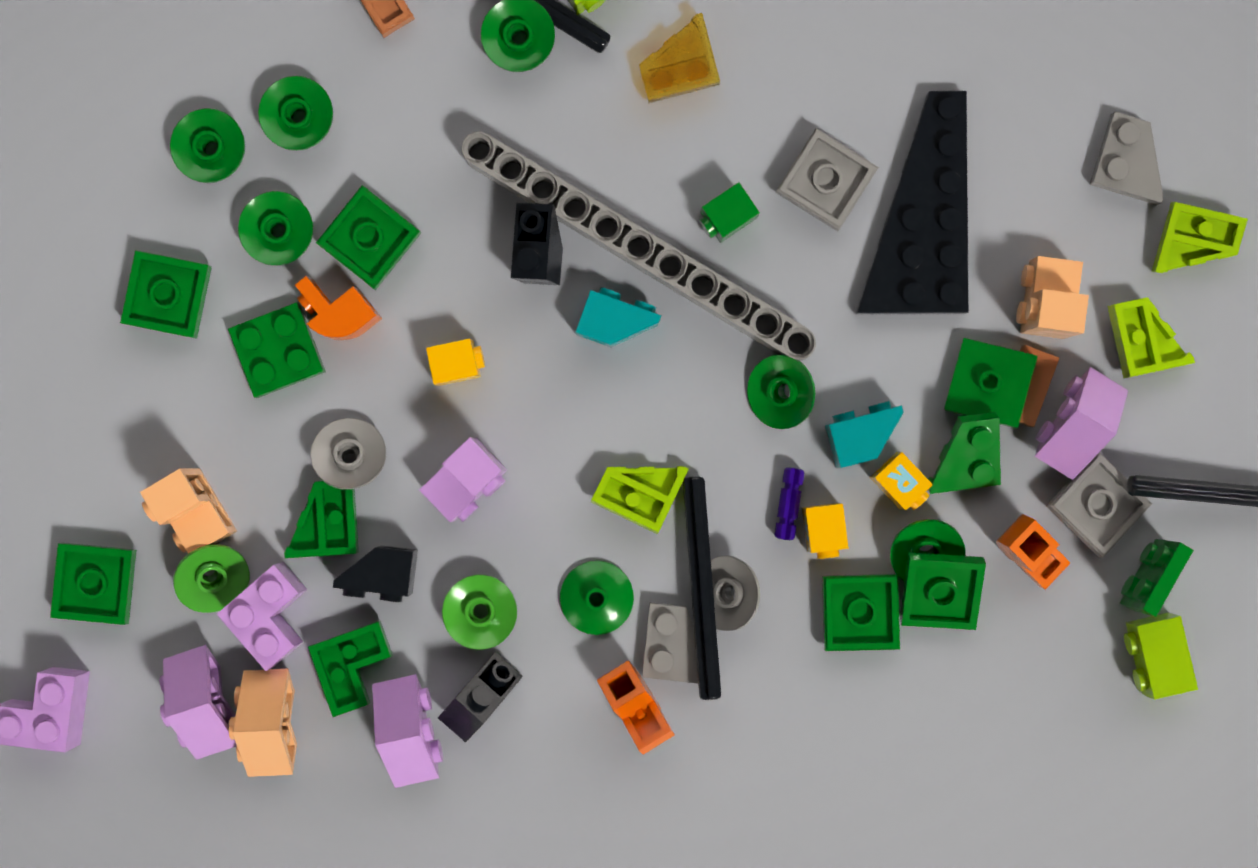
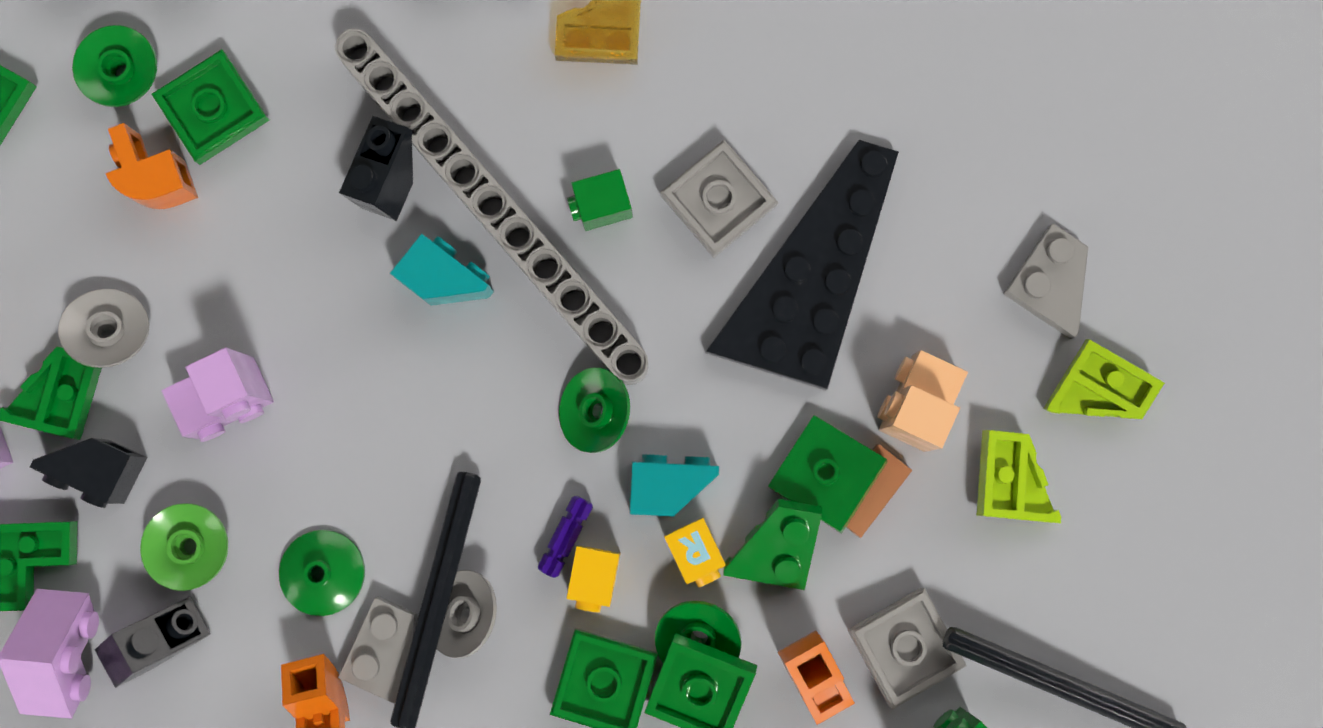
camera: 15 degrees right, 5 degrees down
(276, 350) = (71, 196): green plate -> none
(455, 362) = (253, 266): yellow brick -> none
(640, 493) = (404, 472): lime wing -> none
(1082, 423) = (914, 551): lavender brick -> none

